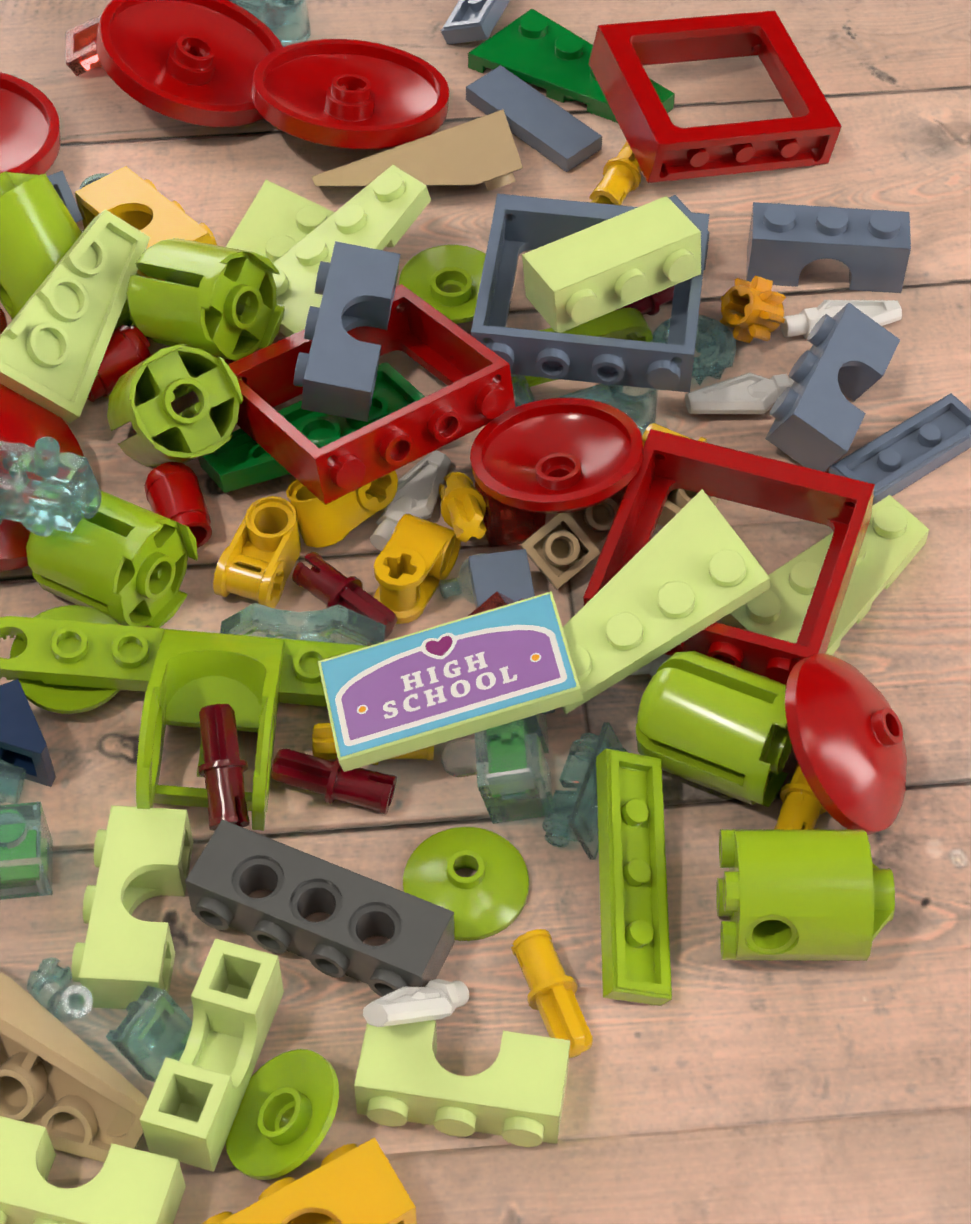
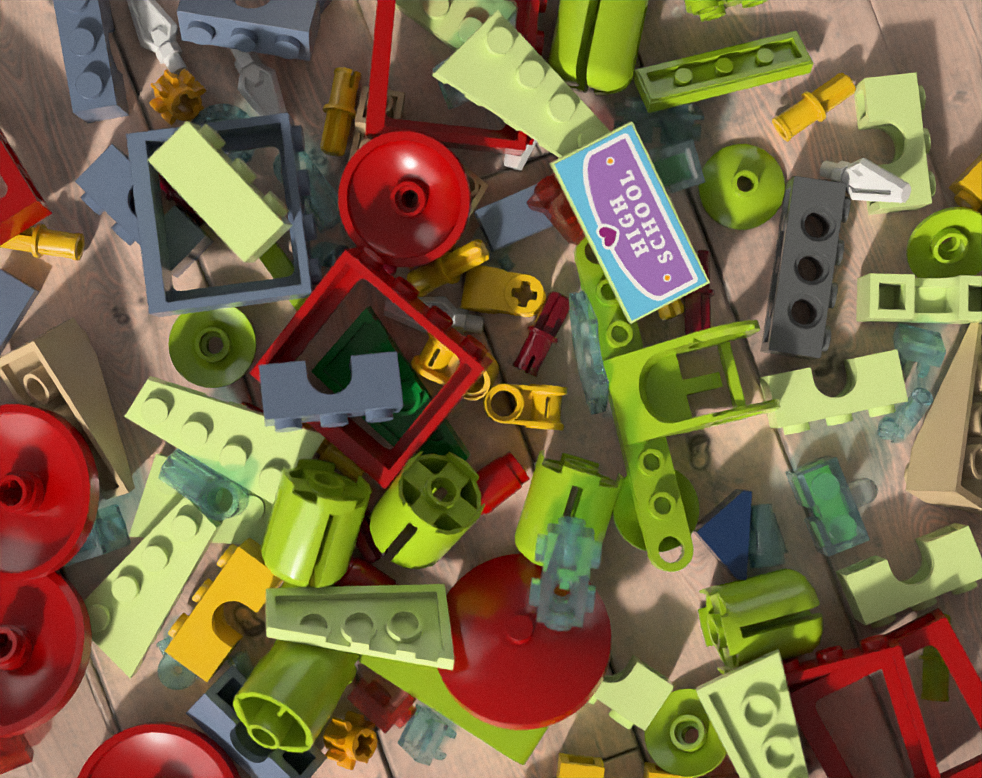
camera: 105 degrees left, 35 degrees up
(207, 178) = (147, 584): none -> yellowish green wing
(222, 766) = (725, 364): dark red axle -> none
(276, 230) = (201, 485): none -> clear light blue piece
(279, 157) = (106, 535): none -> clear light blue bracket

